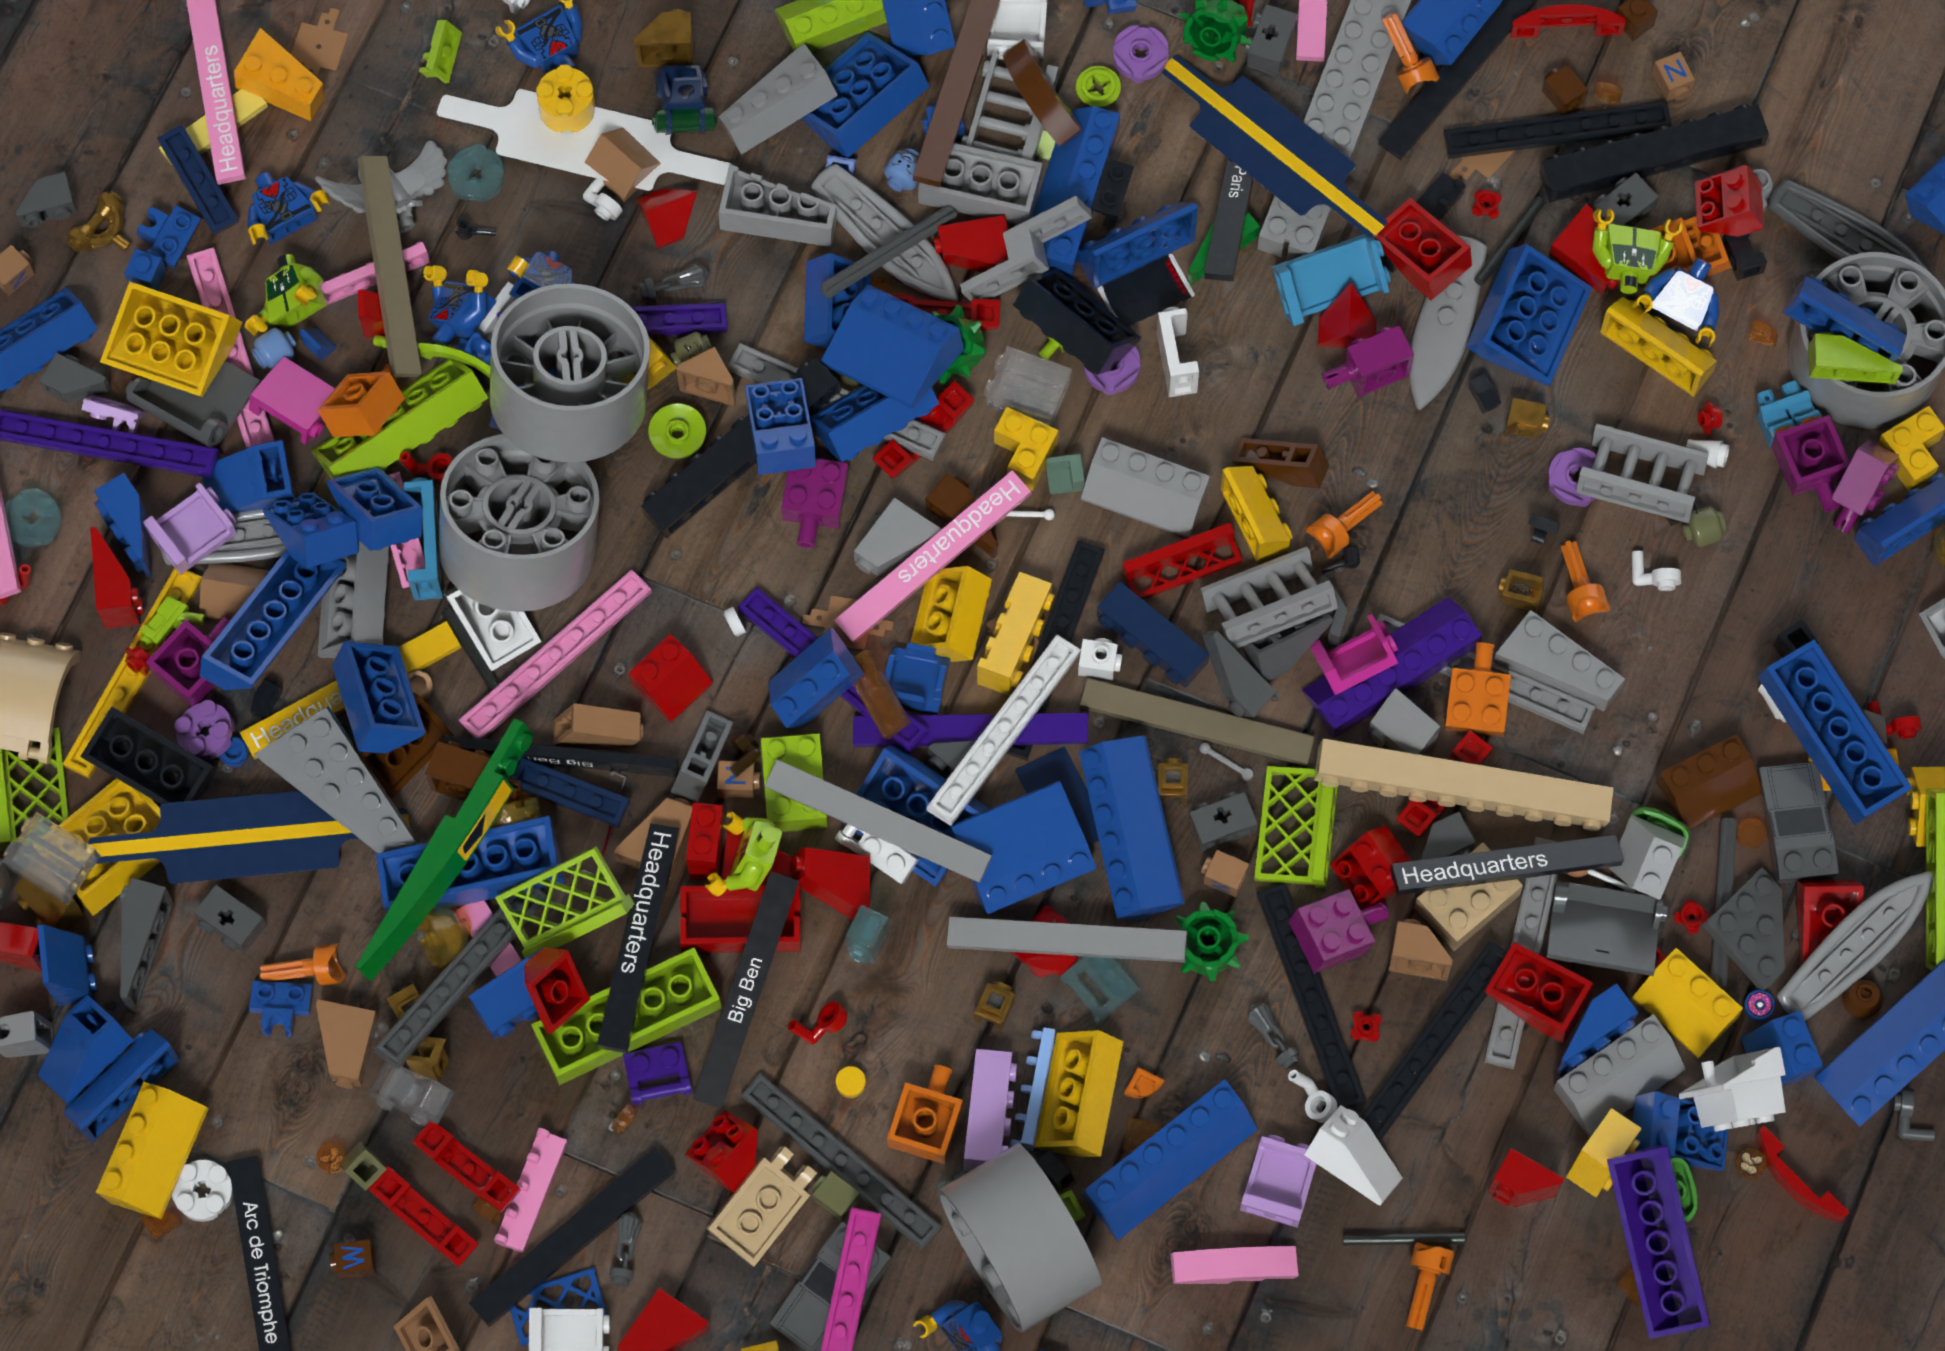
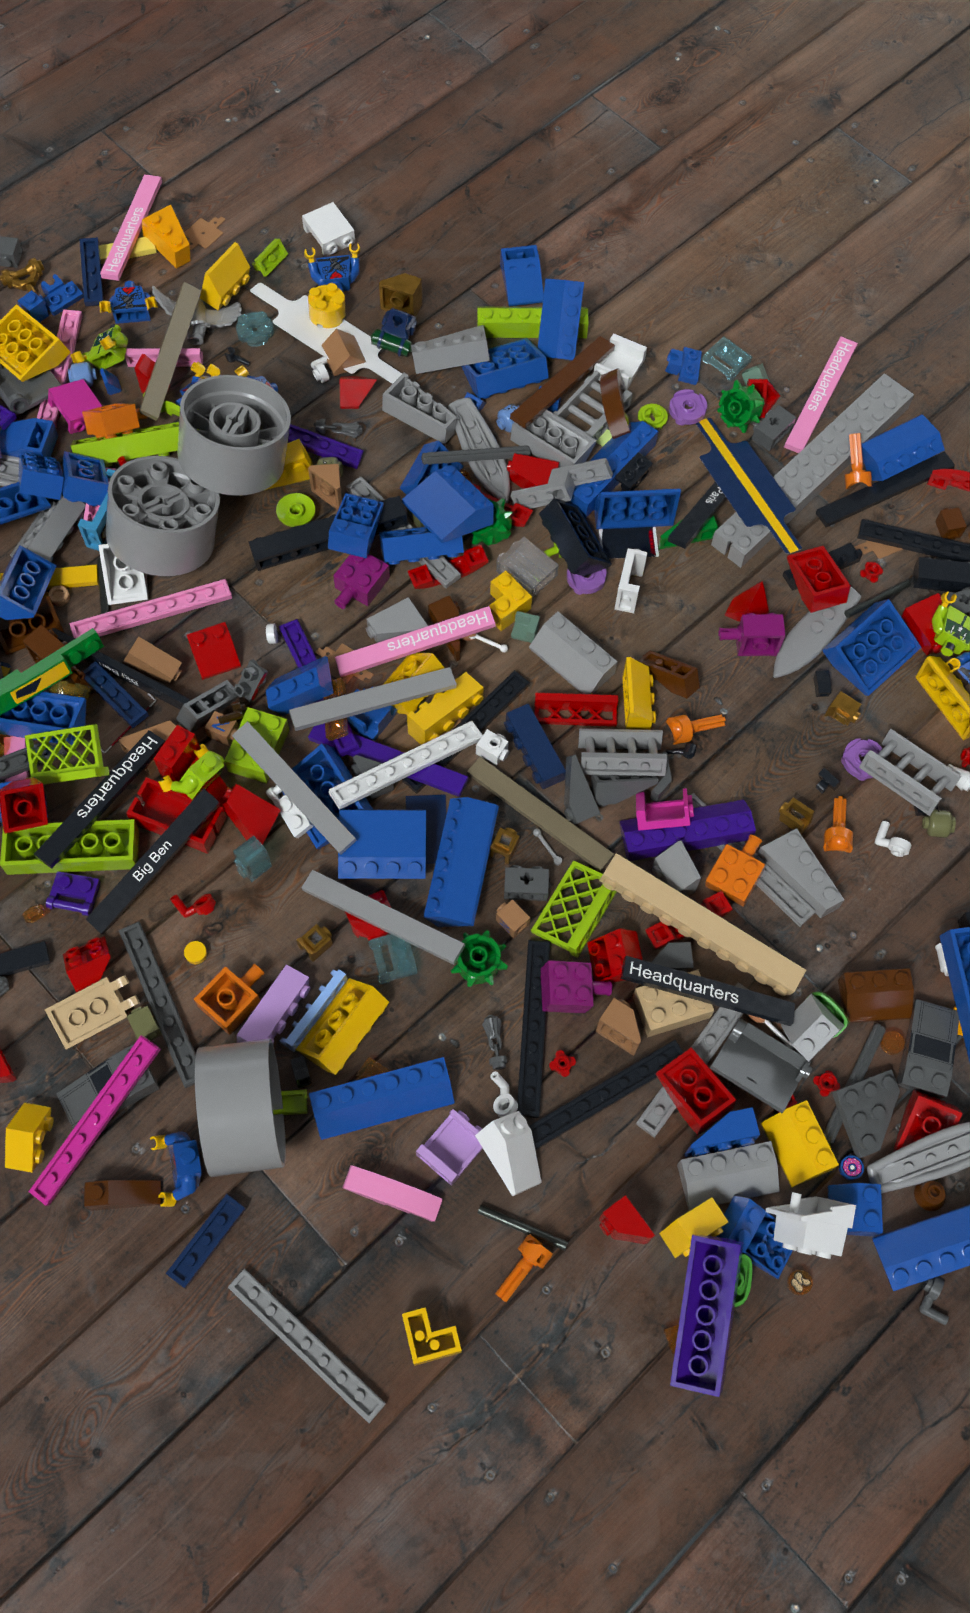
camera: 20 degrees right, 5 degrees down
(404, 117) = (225, 277): none -> yellow slope
(742, 700) = (252, 679): none -> dark grey hips
(922, 661) = (372, 698): none -> light grey tile
(1143, 1084) = (390, 1038): orange tile -> none
(1318, 278) = (738, 572): dark azure panel -> none
(1826, 1206) = (844, 1340): red slope -> none

